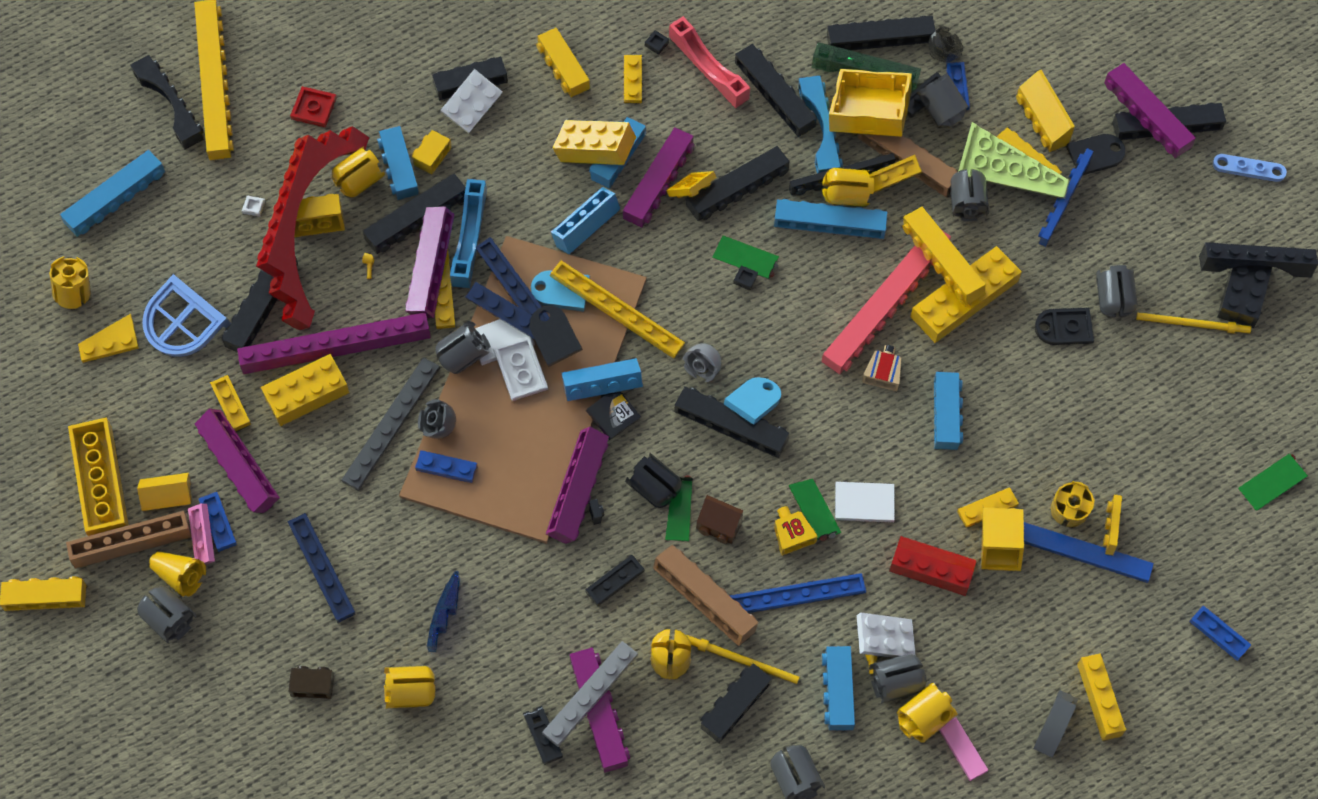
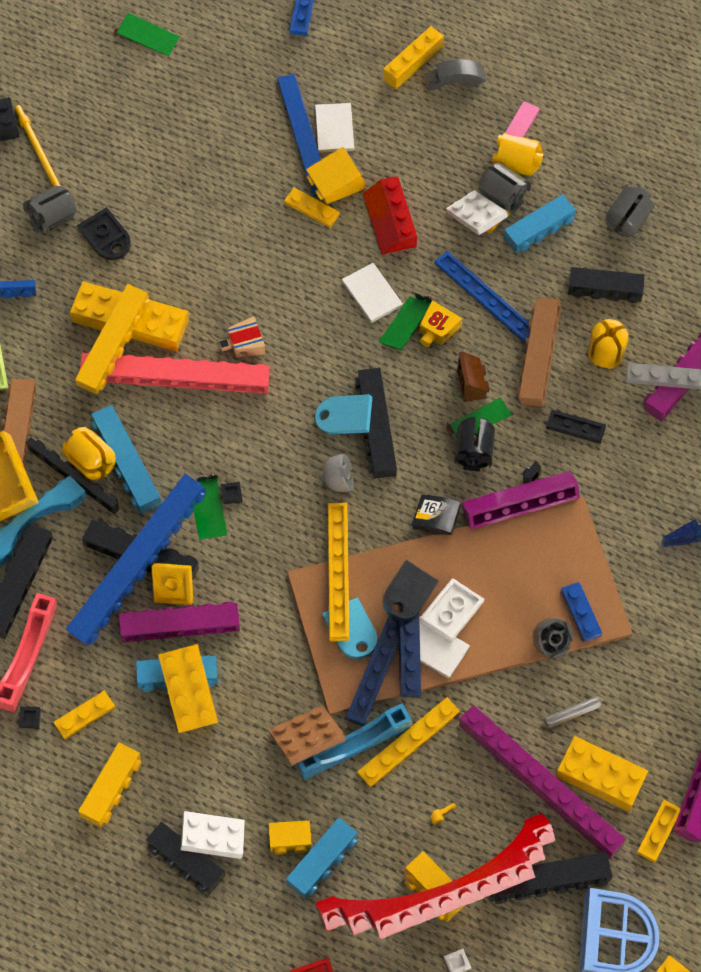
camera: 125 degrees left, 0 degrees up
(357, 173) = (363, 880): yellow cylinder -> none
(371, 408) = (572, 712): none -> light grey axle
(390, 424) = (574, 686): dark grey plate -> none
(410, 216) = (363, 804): black brick -> none
(430, 261) = (408, 751): brick -> none
(462, 348) = (473, 661): dark grey cylinder -> none
(496, 202) = (307, 735): none -> medium nougat plate
(585, 220) = (269, 651): dark azure brick -> none
(602, 379) = (416, 535): dark azure brick -> none
(704, 645) = (576, 333): yellow bar -> none
(728, 167) = (136, 560): none -> blue brick
(895, 173) = (45, 429): yellow plate -> none
(947, 411) = (249, 275): dark azure brick -> none
(970, 198) = (29, 360): dark grey cylinder -> none
(1065, 580) = (334, 127): none -> white tile
(1082, 507) = (274, 142): yellow cylinder -> none
(1112, 524) = (267, 113): yellow plate -> none

